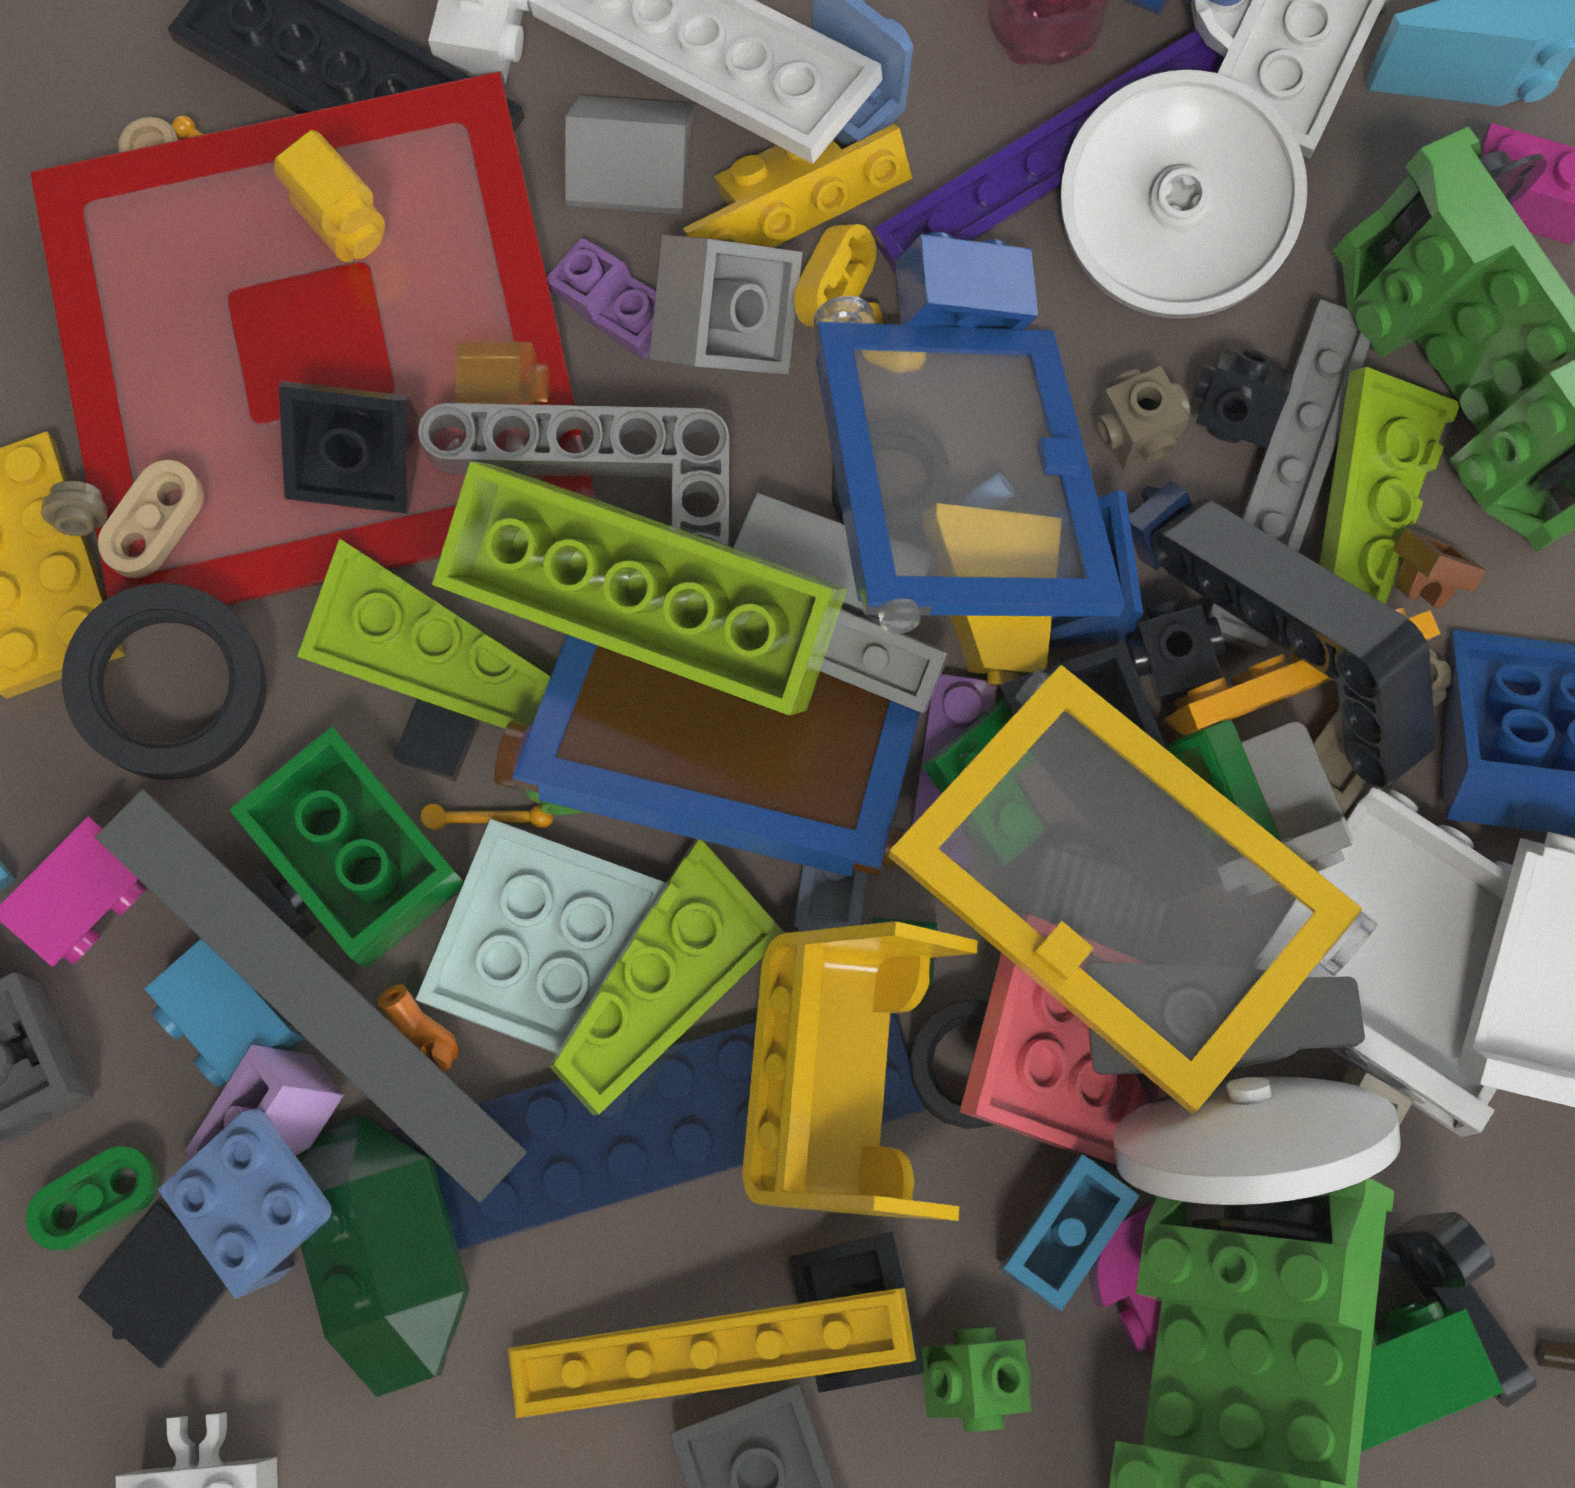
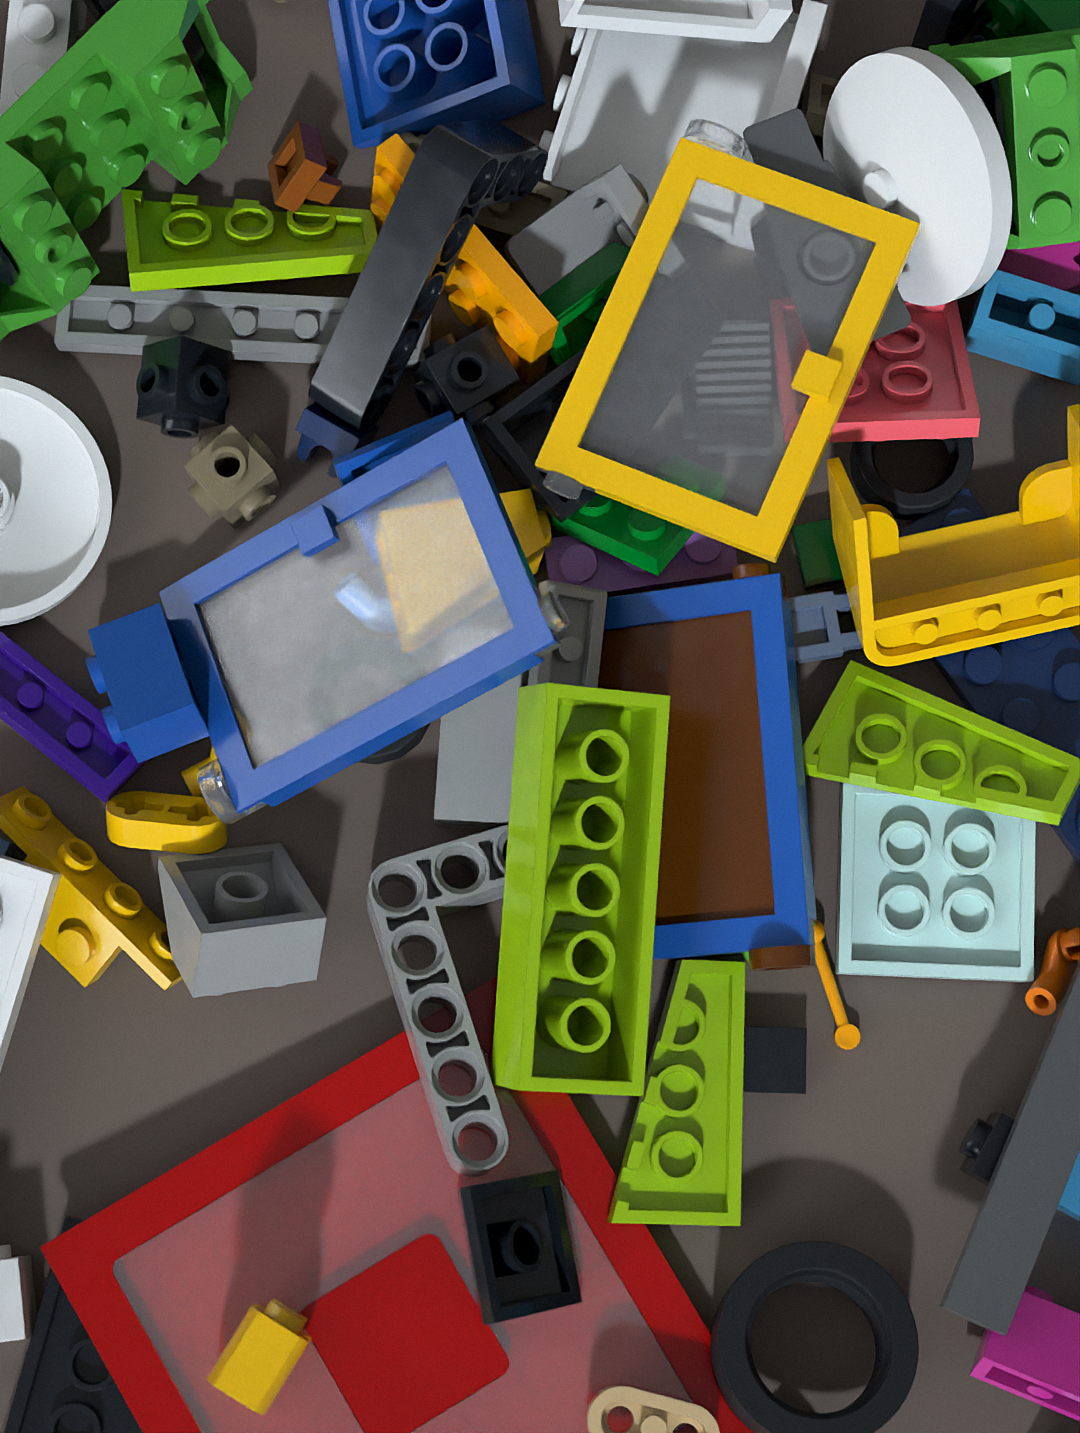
camera: 110 degrees left, 5 degrees up
(347, 848) = (918, 1095): green brick -> none
(500, 374) = (397, 1114): clear yellow brick -> none
(606, 295) = (251, 1051): medium lavender slope -> none
(628, 154) = (79, 1087): light grey slope -> none

